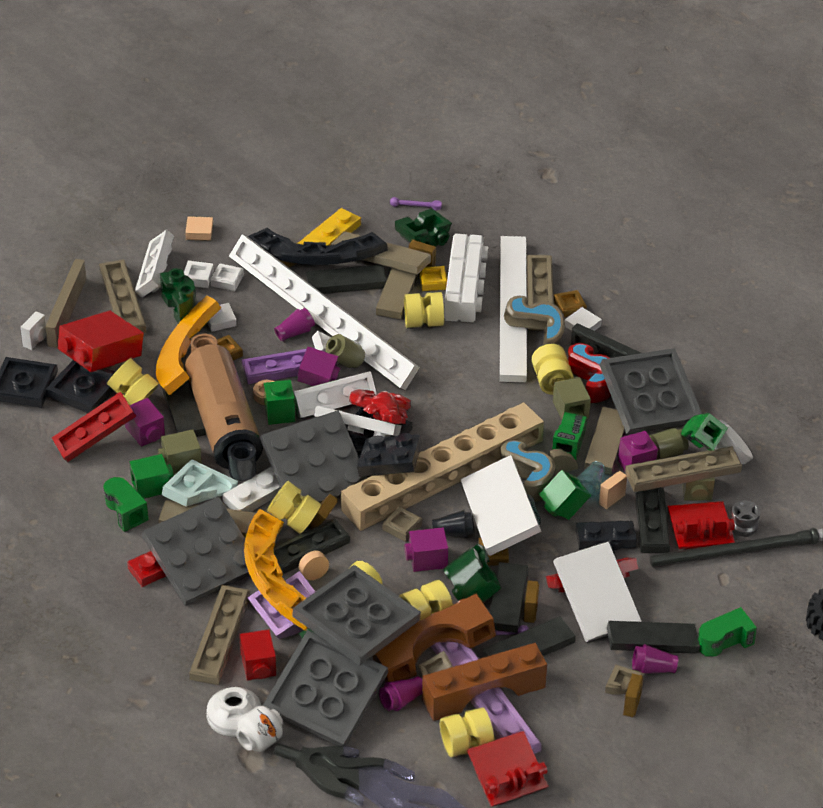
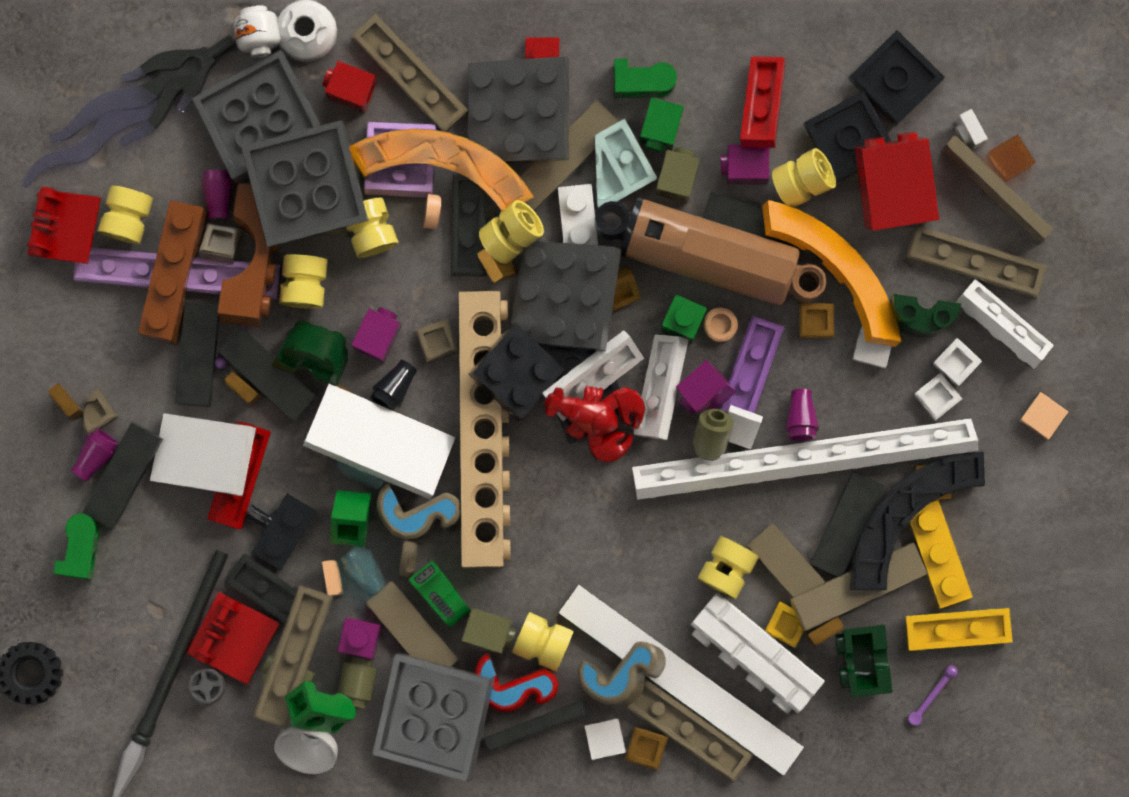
camera: 125 degrees right, 40 degrees up
(36, 305) = (1011, 157): none -> clear orange tile
(366, 205) = (958, 629): none -> yellow plate

